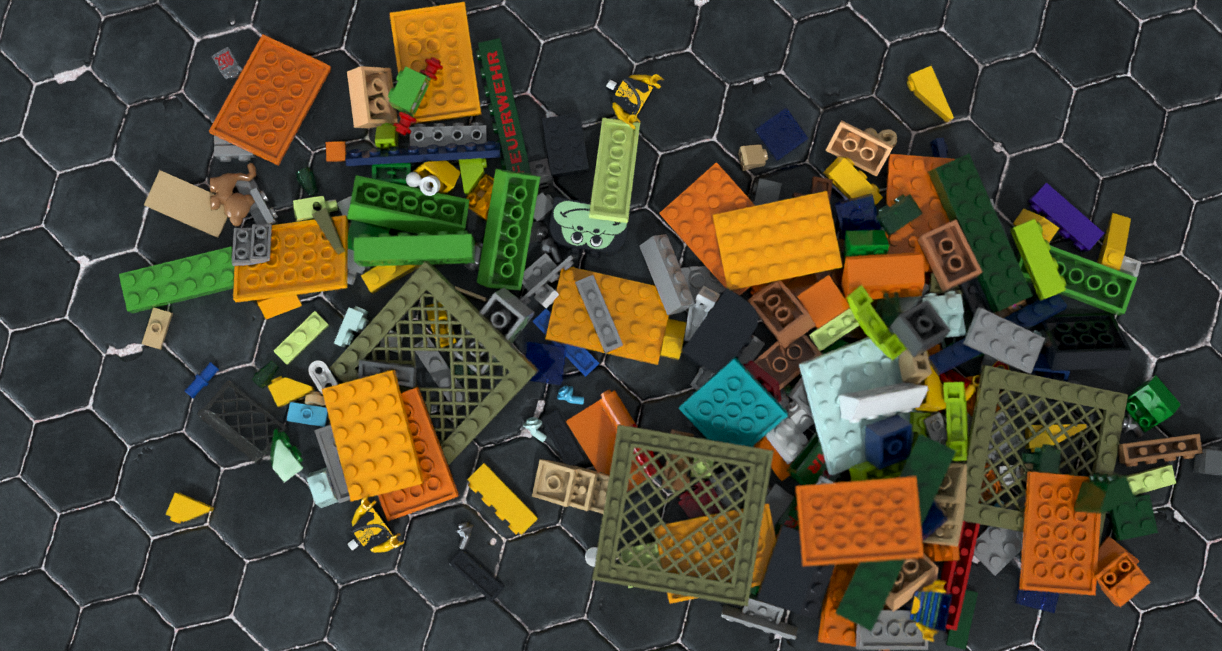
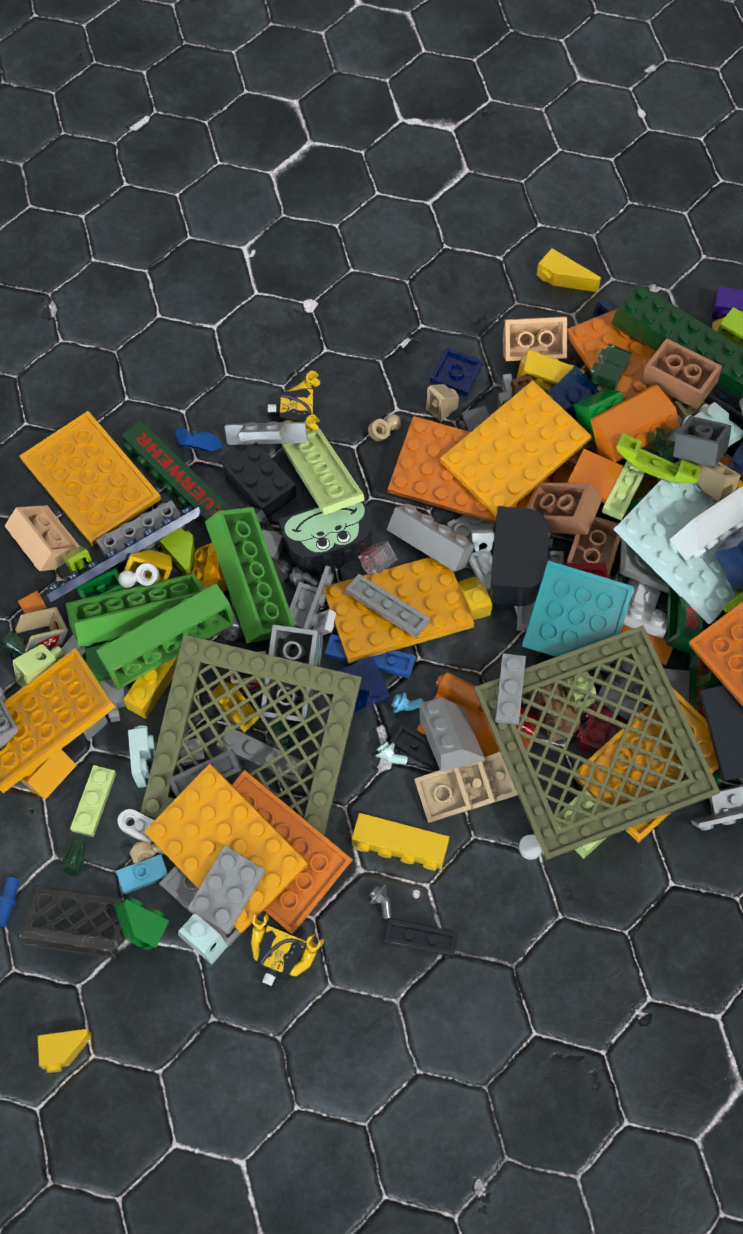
camera: 30 degrees left, 20 degrees down
(288, 390) = (108, 858): yellow slope -> none
(327, 225) = (62, 665): olive piece -> none
(344, 176) = (43, 619): none -> tan piece
(356, 468) = (227, 889): none -> light grey plate
(410, 92) = (78, 504): bright green brick -> none
(536, 80) = (197, 440): none -> blue hat
(584, 443) = (449, 734): none -> light grey slope
(592, 107) = (266, 433): none -> light grey bracket
(617, 267) = (377, 557): none -> clear brick
(642, 442) = (510, 689): none -> light grey plate
(702, 150) = (391, 423): none -> tan plate
(803, 184) = (506, 388): none -> light grey slope

